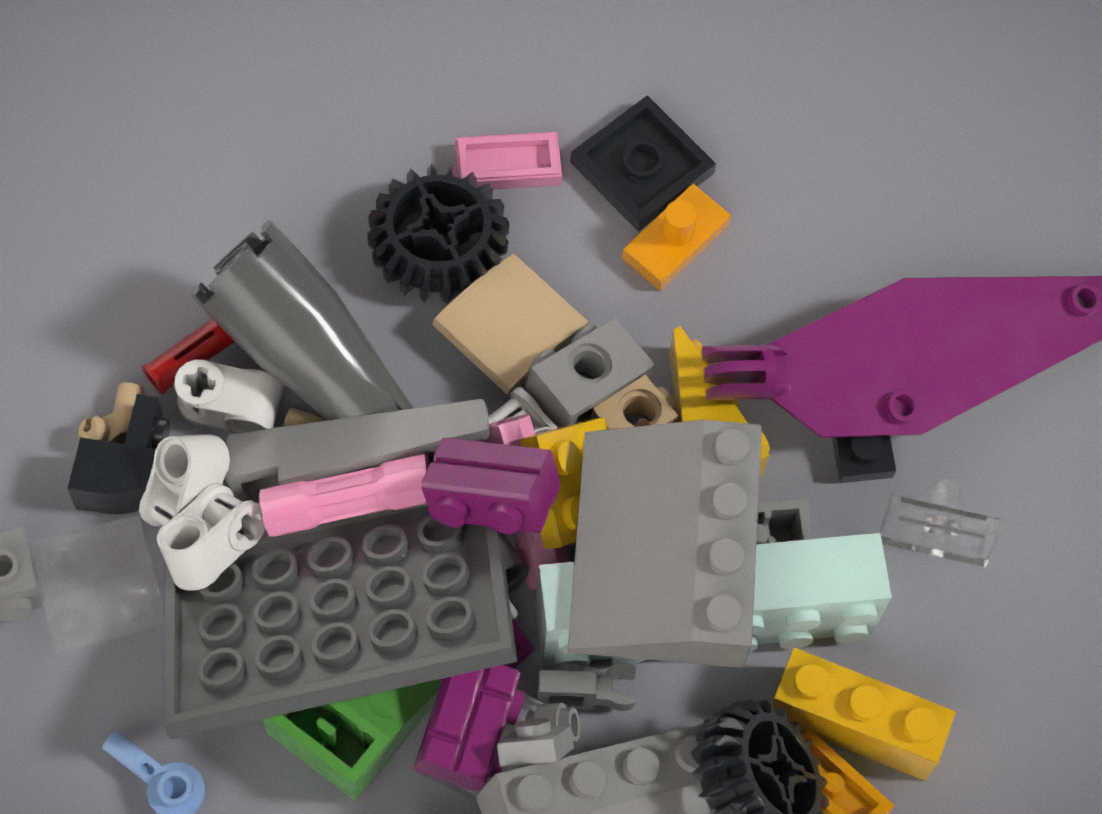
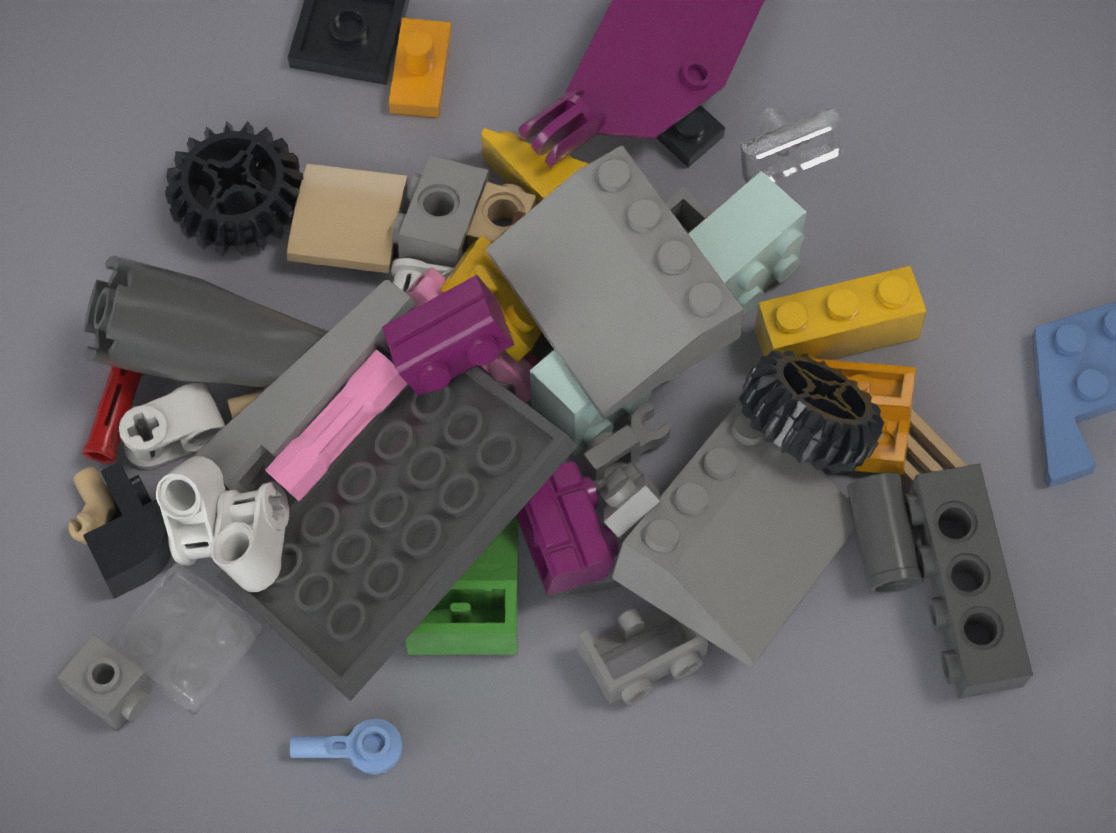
camera: 30 degrees left, 0 degrees up
(510, 159) = (243, 95): bright pink tile -> none

